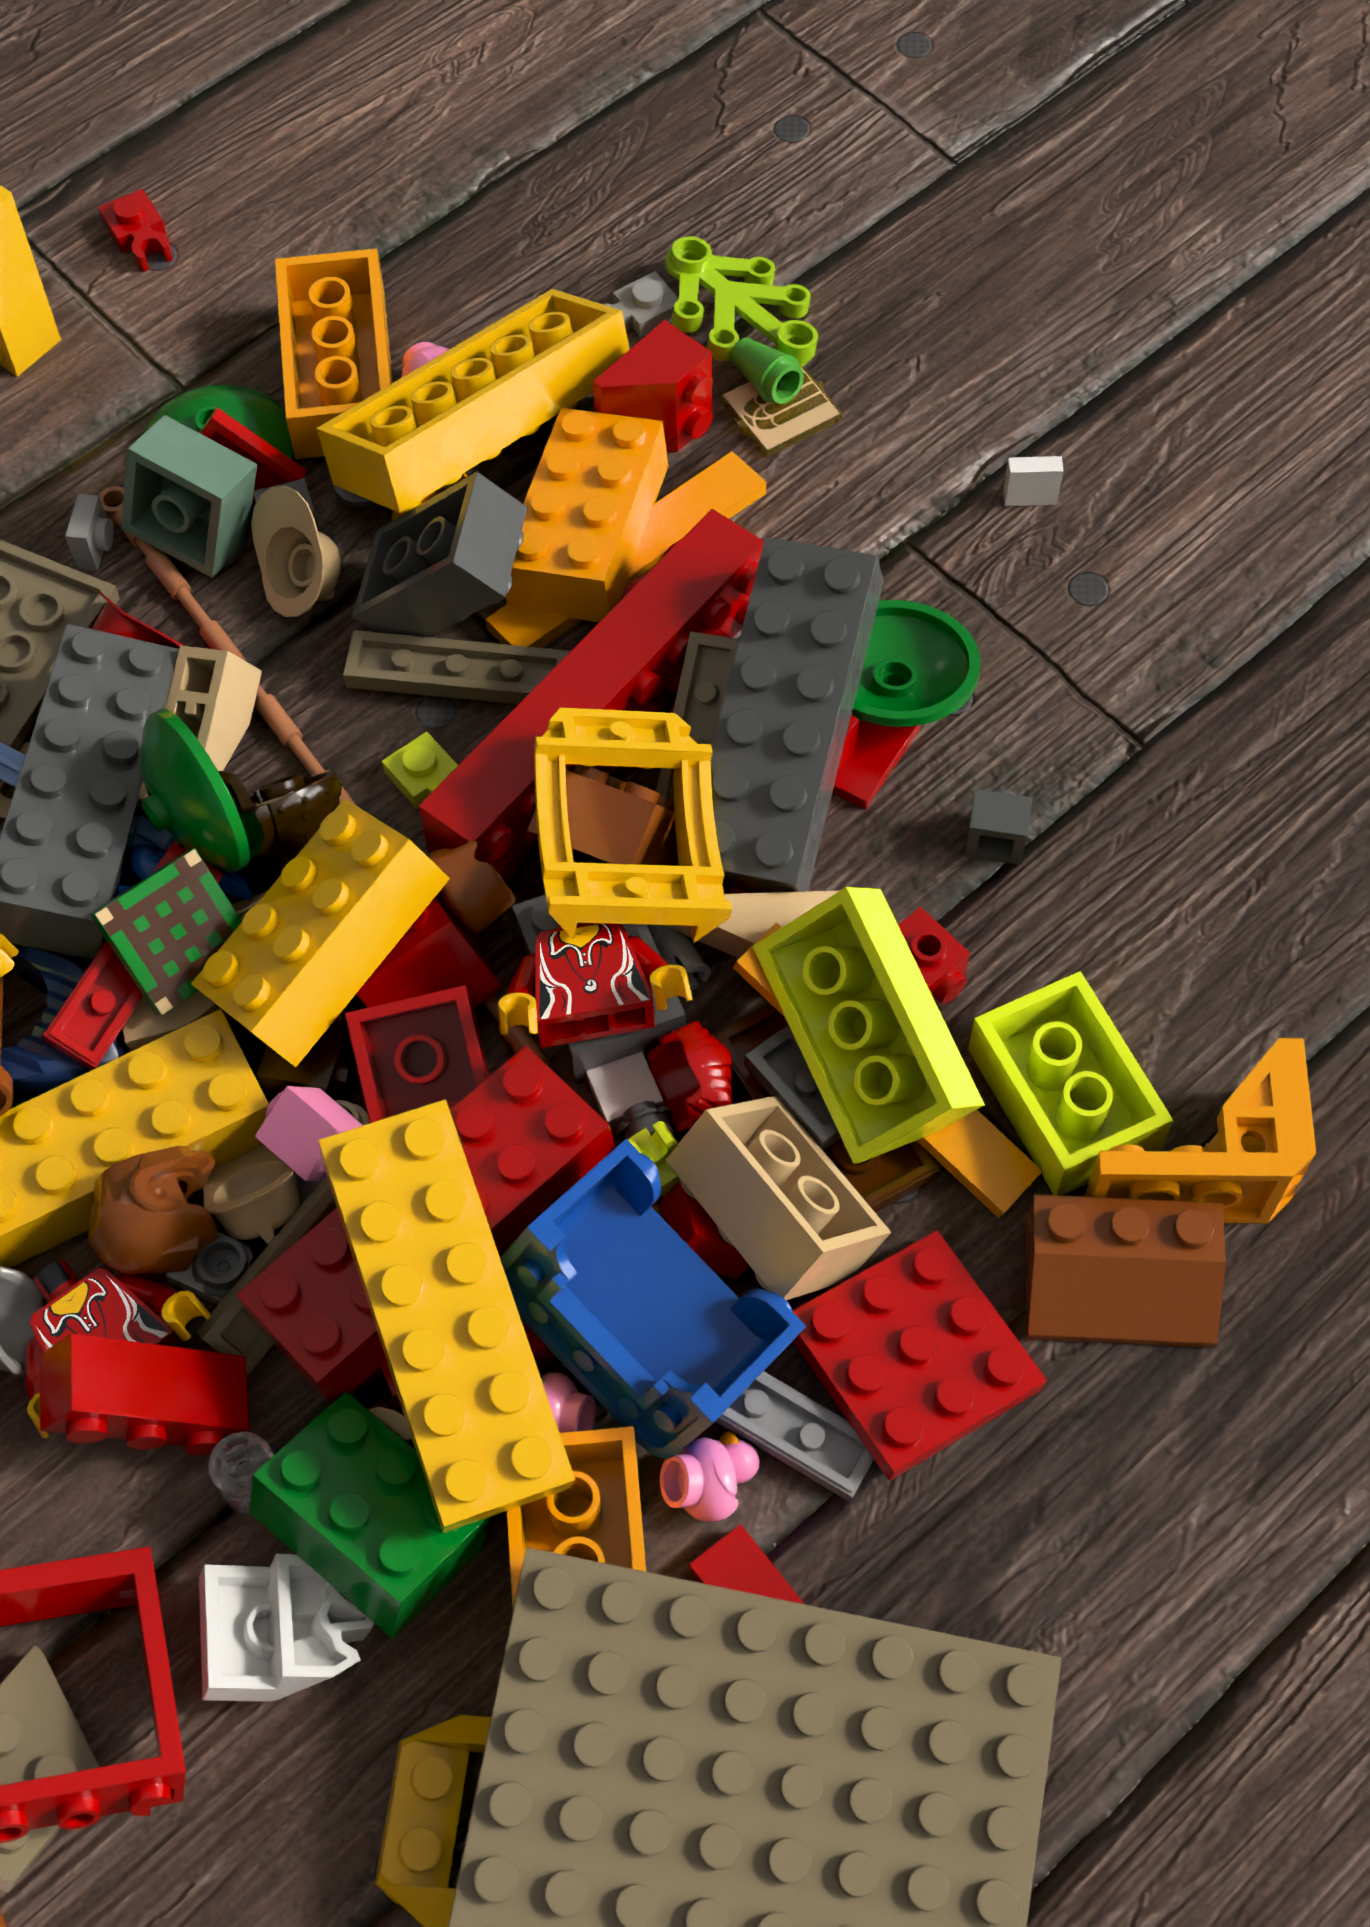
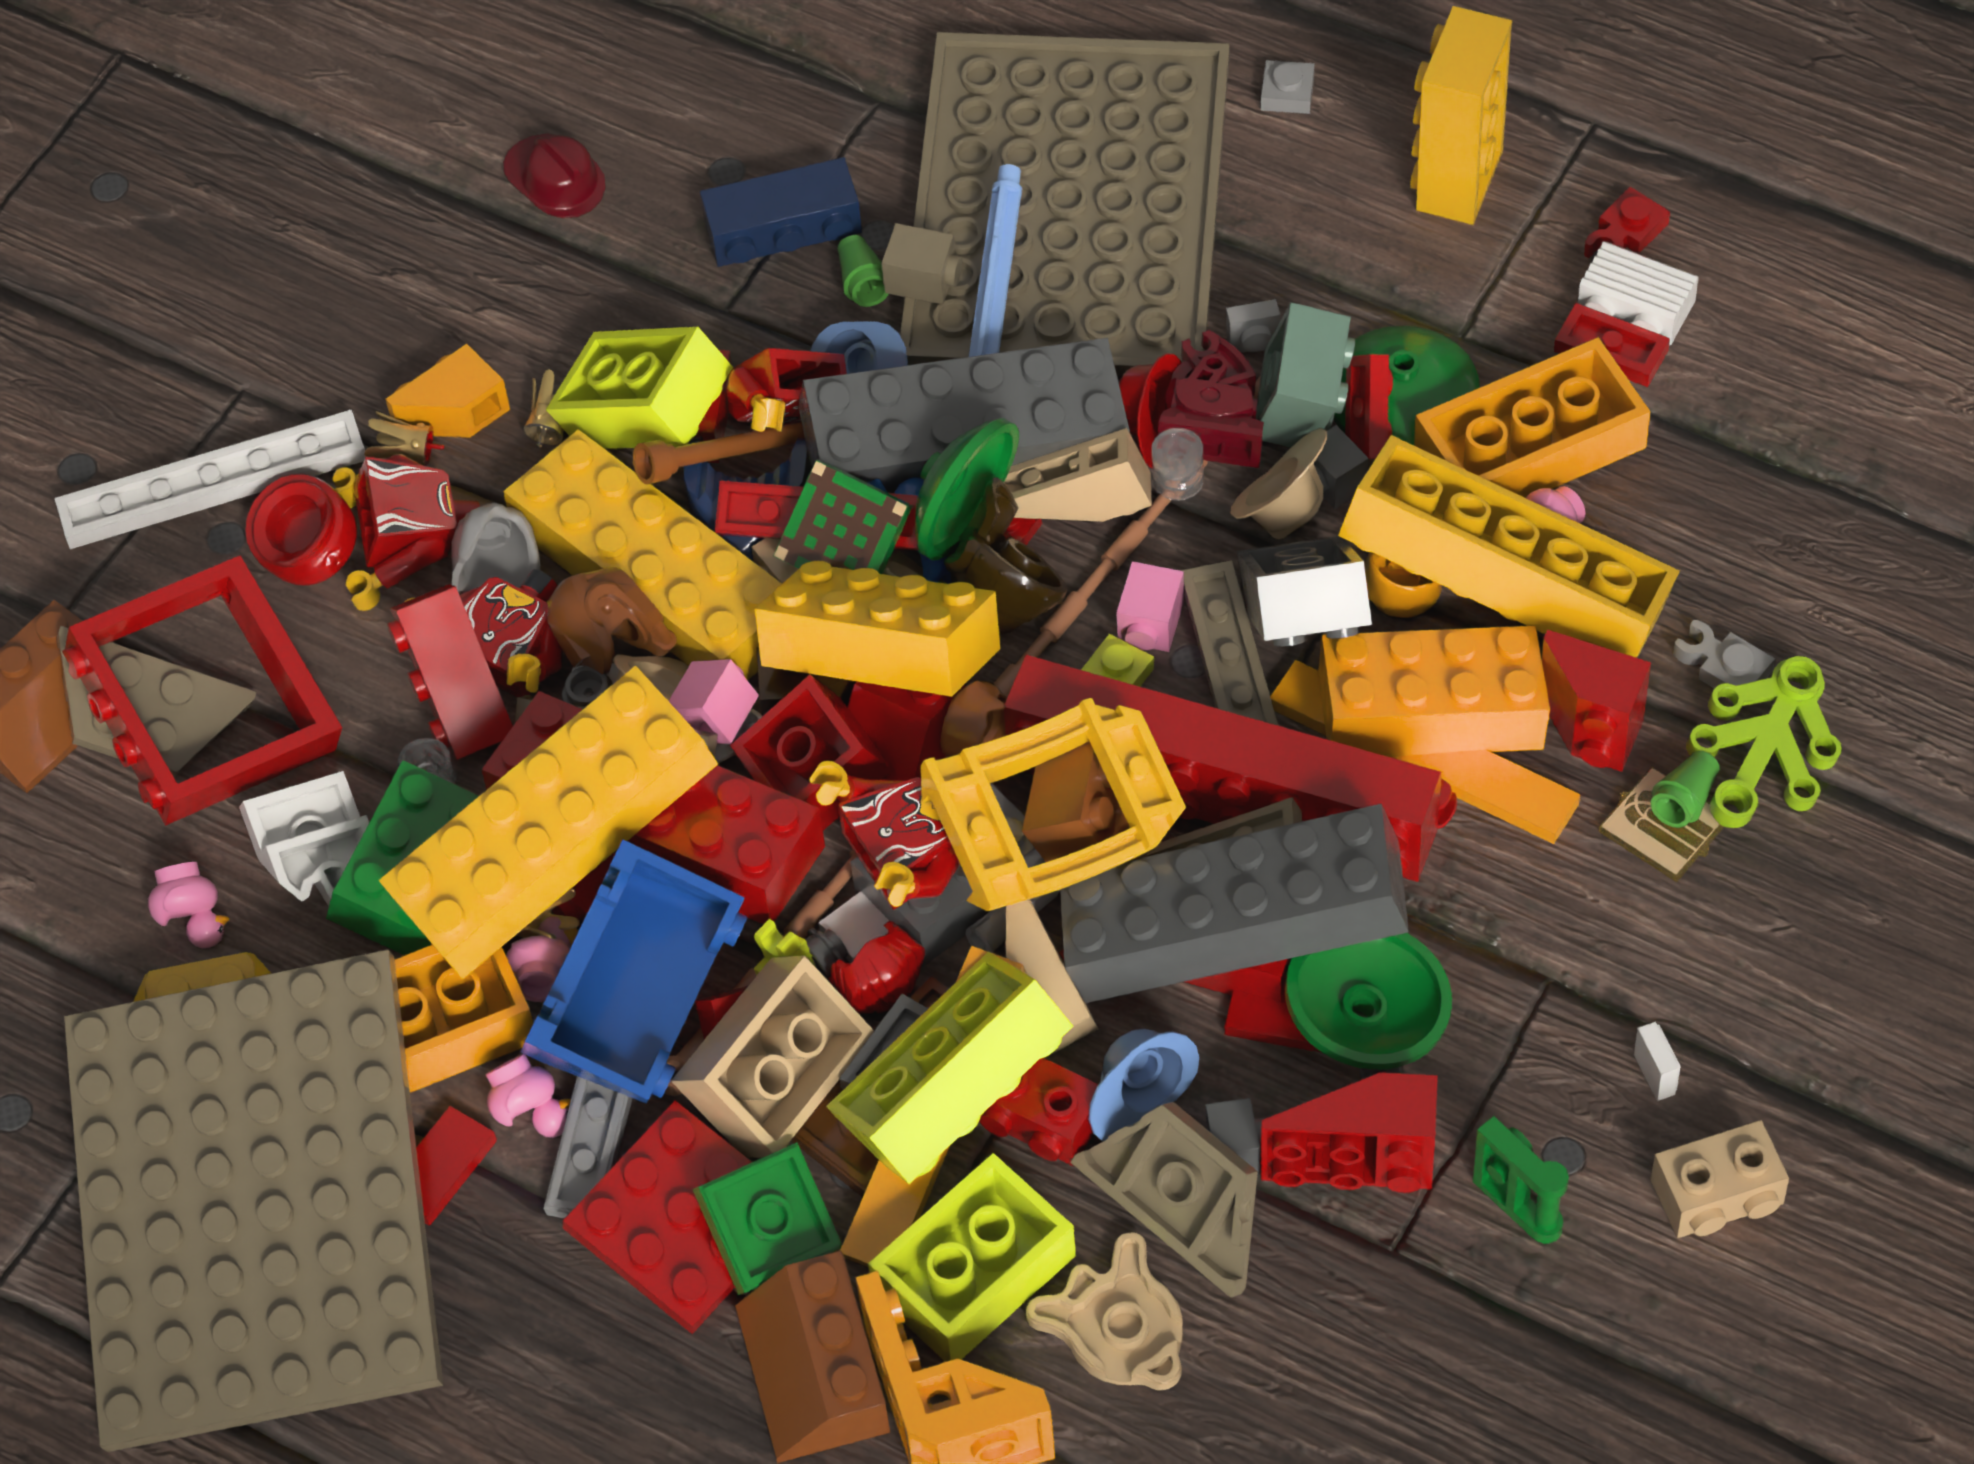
camera: 75 degrees right, 5 degrees down
(170, 585) = (1215, 400): none -> dark red piece
(221, 237) = (1638, 290): none -> white brick
(226, 625) = (1177, 464): none -> clear wheel
(251, 280) = (1632, 347): none -> red plate
(287, 1803) = (186, 893): none -> bright pink animal
(370, 714) = (1150, 606): none -> bright pink brick
(900, 873) = (1140, 1075): none -> medium blue piece
(958, 1263) = (767, 1217): none -> green tile
(1044, 881) = (1181, 1189): none -> dark tan wing
(1050, 702) = (1357, 1136): none -> red slope
(1135, 606) = (1509, 1170): none -> green plate
(1154, 983) = (1117, 1322): none -> tan tile
(1168, 475) = (1720, 1180): none -> tan brick

